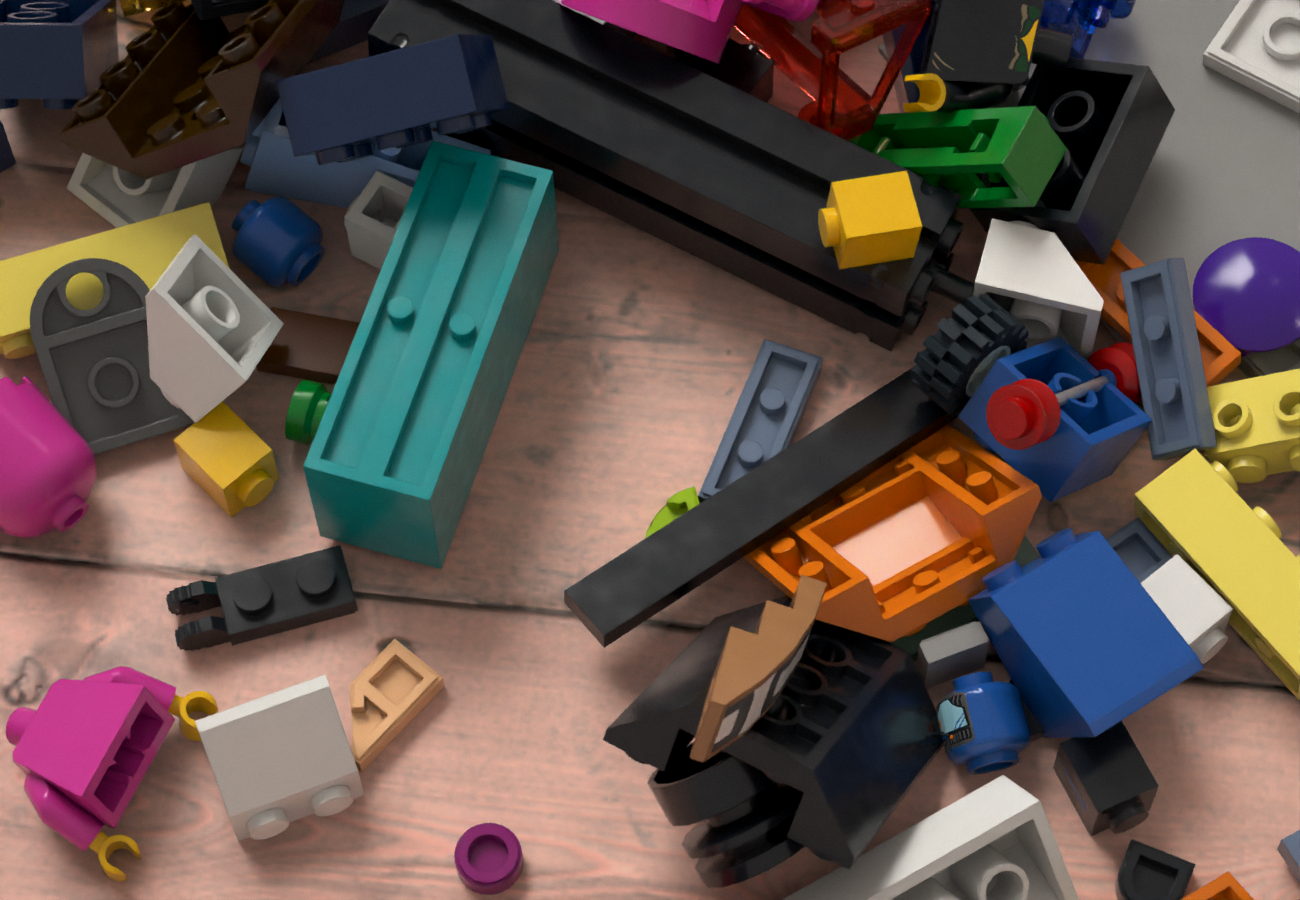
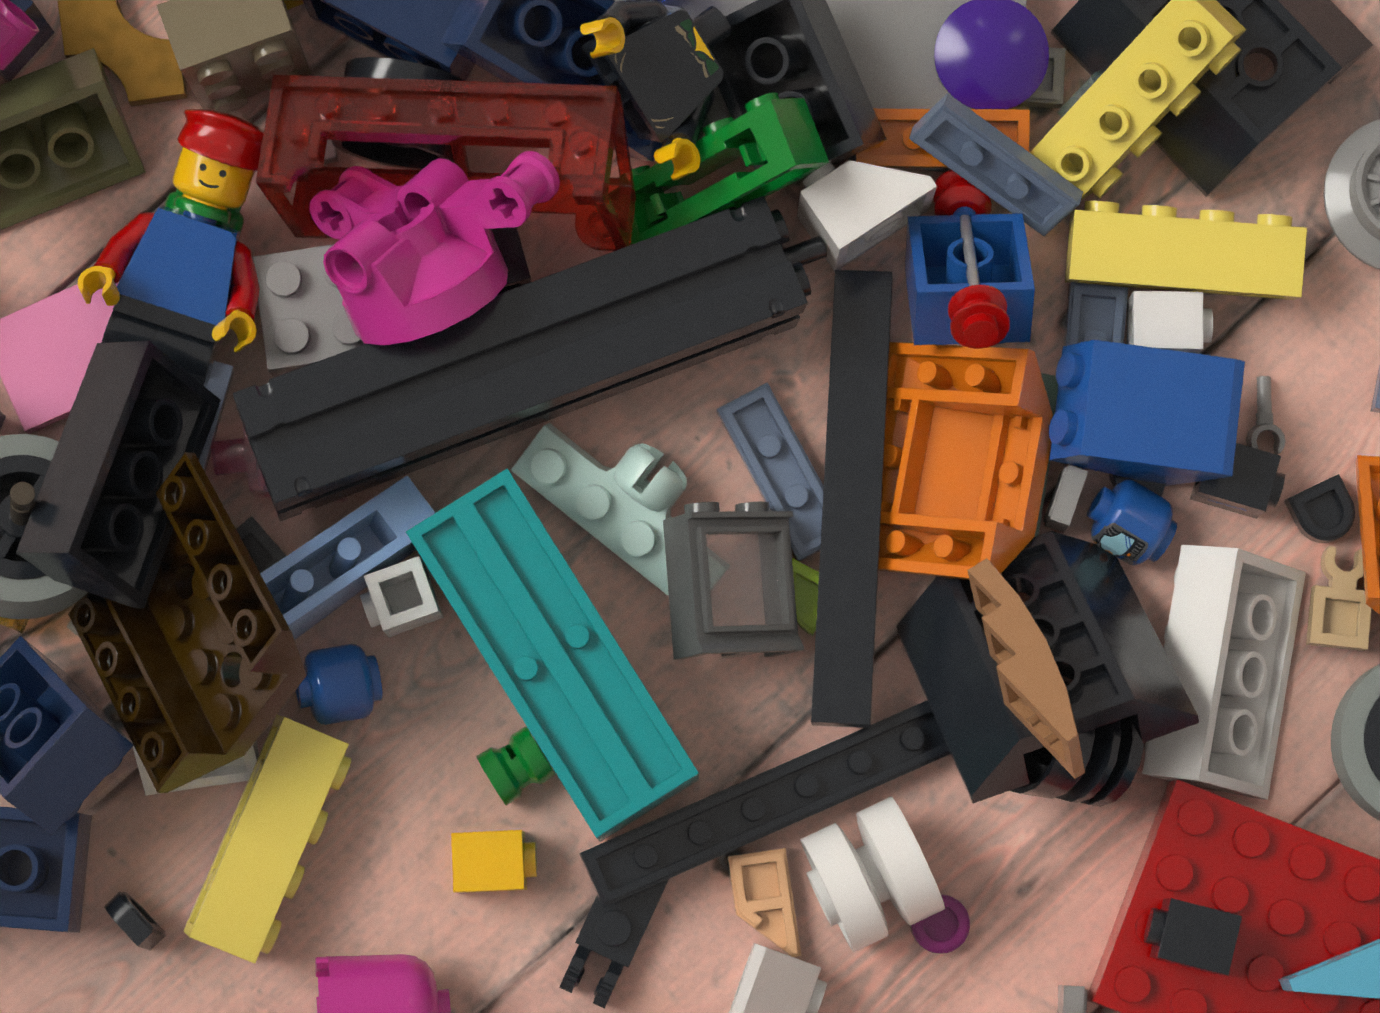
camera: 50 degrees left, 20 degrees up
(101, 358) = (345, 885): dark grey tile -> none
(204, 330) = (399, 803): white slope -> none
(308, 346) = (451, 719): reddish brown tile -> none
(393, 98) = (360, 536): dark blue brick -> none
(453, 620) = (764, 804): none -> black tile
(462, 740) = (857, 881): none -> white wheel
(616, 338) = (608, 502): none -> light aqua plate
(630, 444) = (731, 581): none -> dark grey window
(871, 220) = (742, 284): yellow brick -> none
(966, 351) = (878, 296): black wheel -> none
(1183, 766) = (1264, 417): none -> light grey hand

